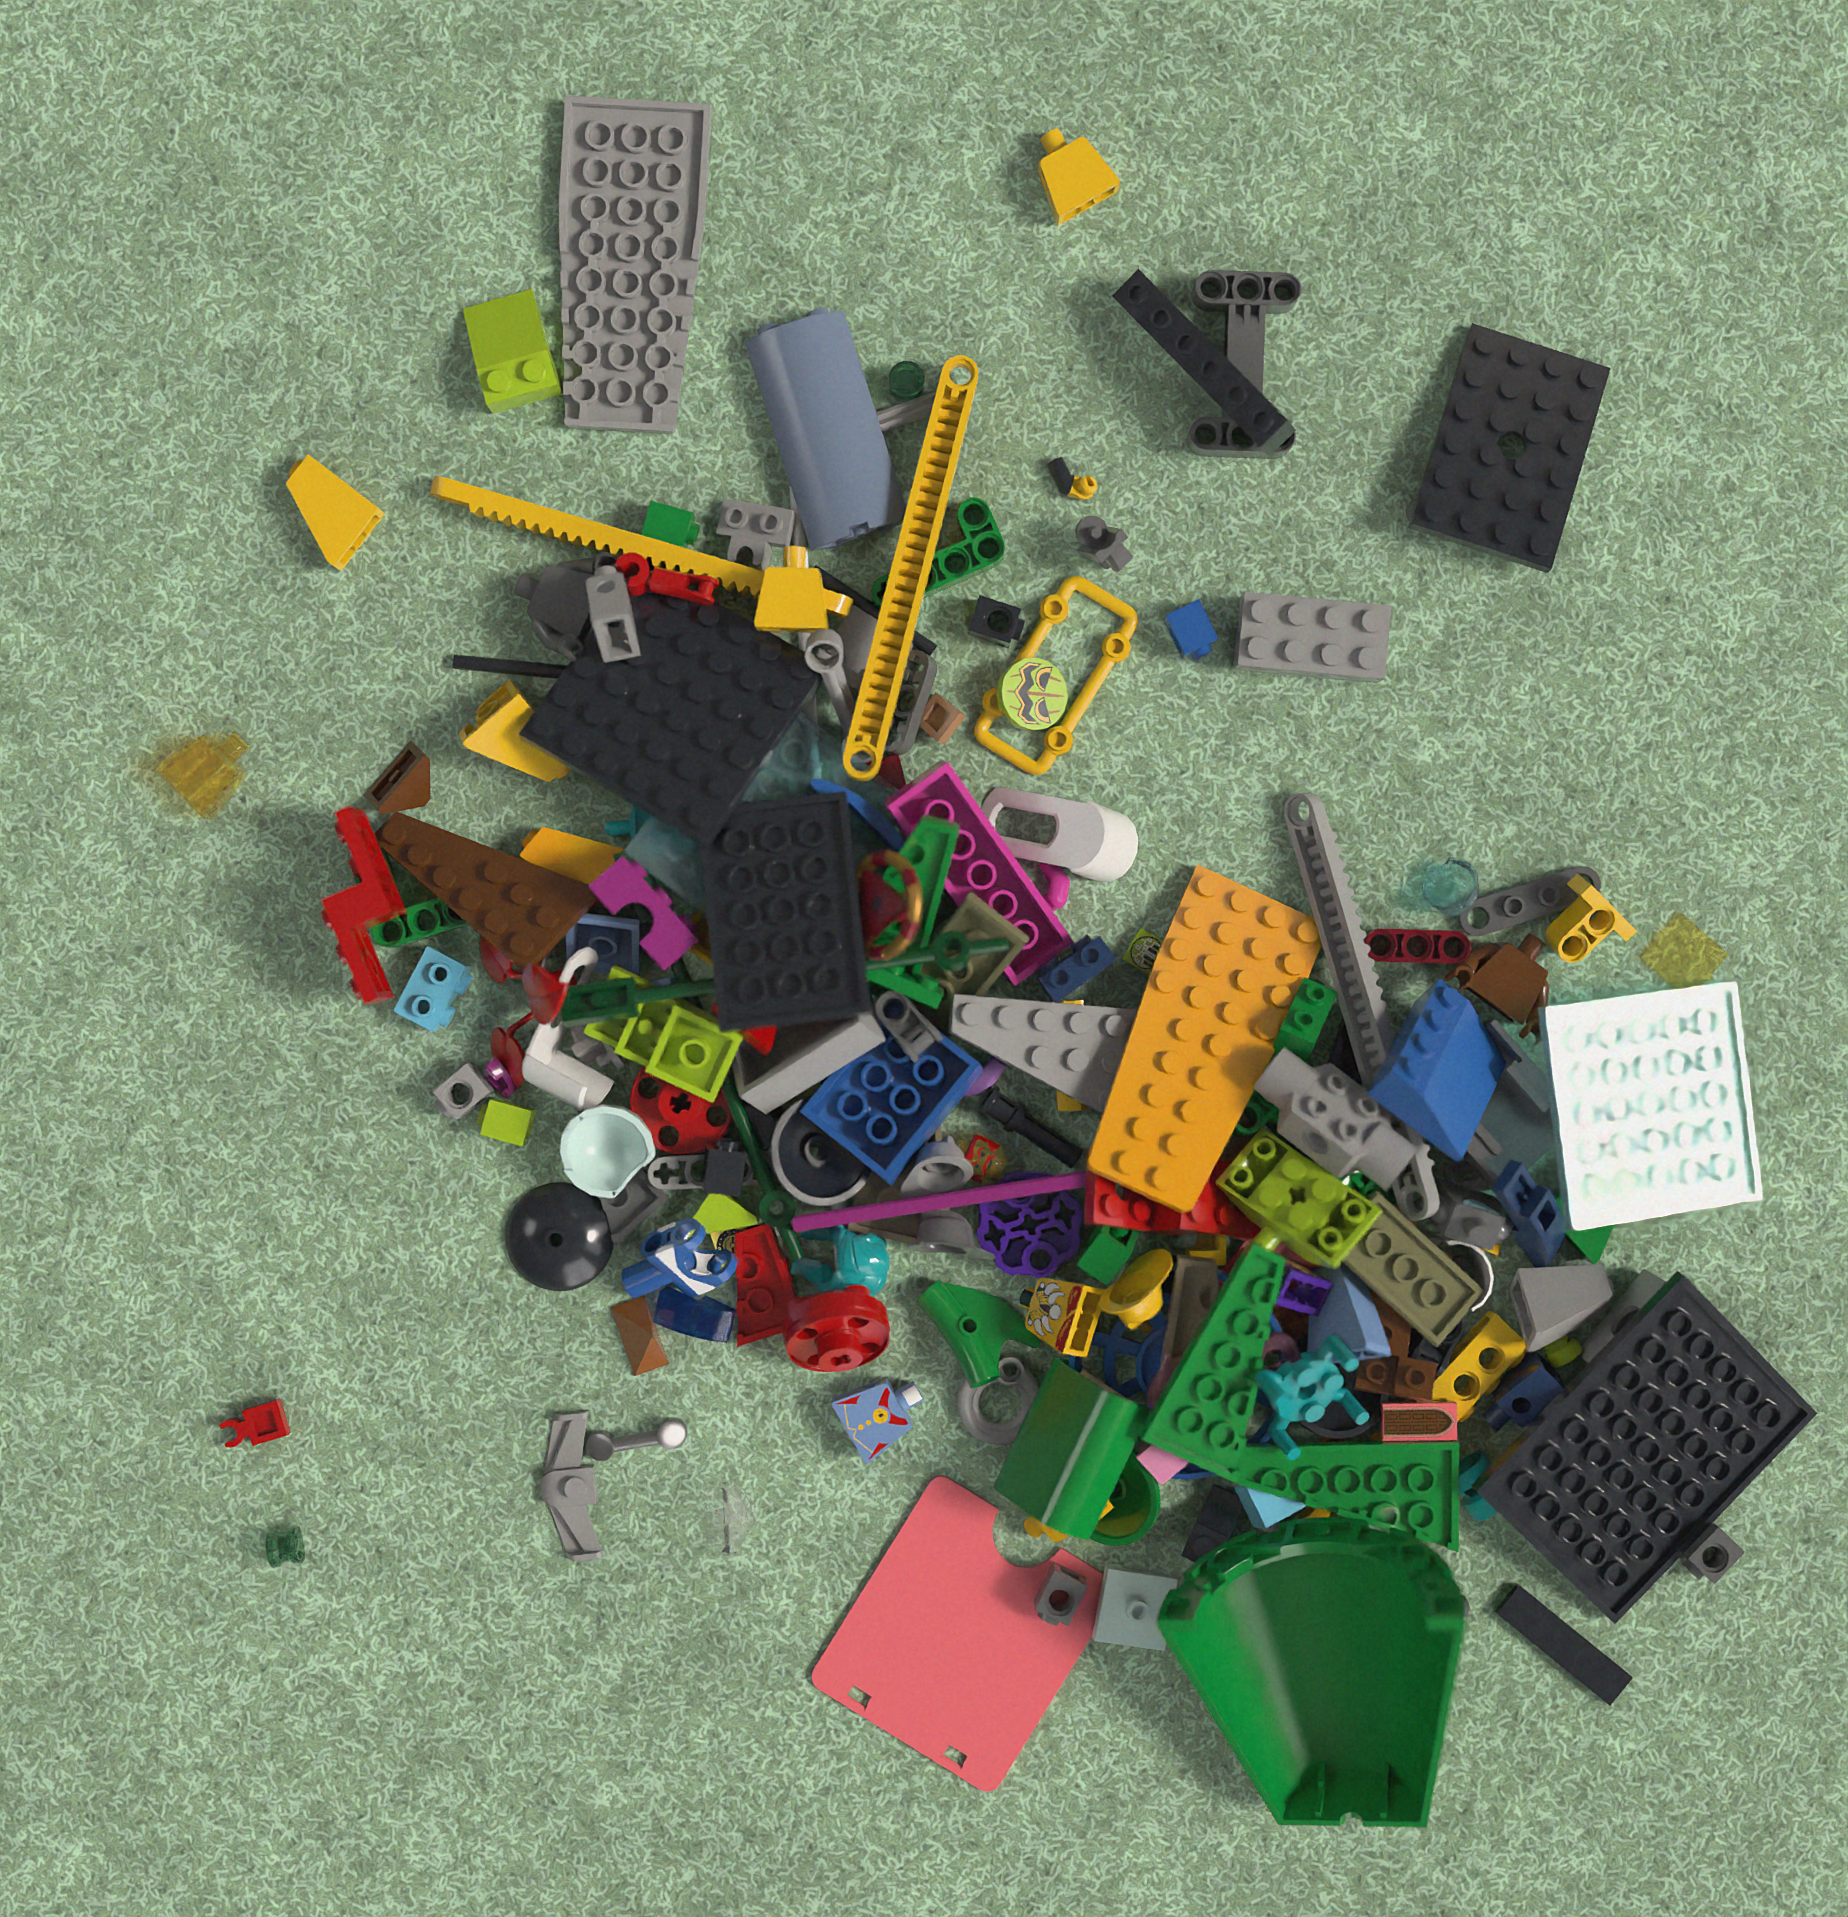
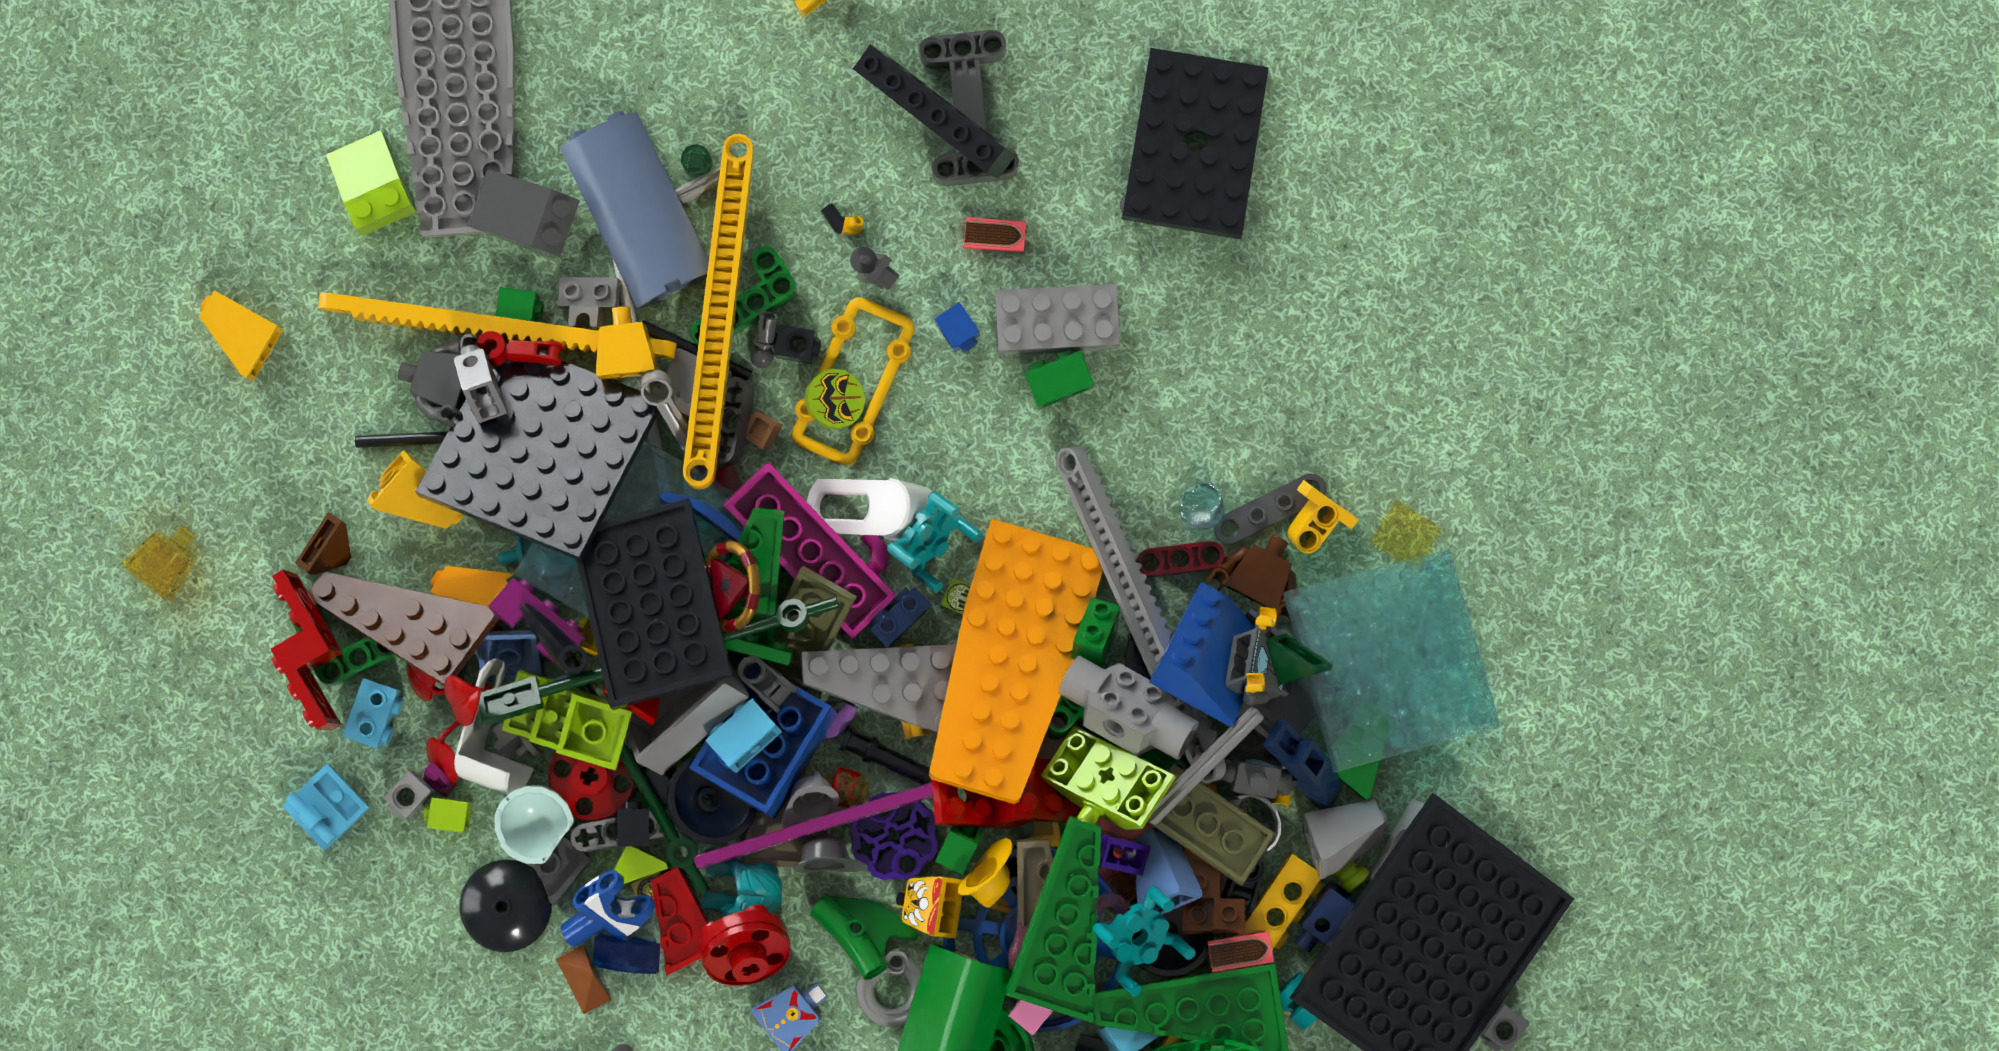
camera: 10 degrees left, 5 degrees down
(364, 1090) = (326, 807): none -> medium azure plate
(662, 938) = (554, 640): none -> black piece
(691, 415) = (523, 213): none -> dark grey slope
(870, 1083) = (743, 735): none -> medium azure brick
(952, 627) = (762, 354): none -> dark grey pin
(1123, 878) = (930, 537): none -> teal plate
(1250, 524) = (994, 235): none -> tile
(1304, 709) = (1058, 379): none -> green brick
(1424, 1196) = (1206, 763): none -> light grey axle
(1496, 1089) = (1250, 665): none -> dark grey torso
(1542, 1092) = (1294, 660): none -> dark green slope

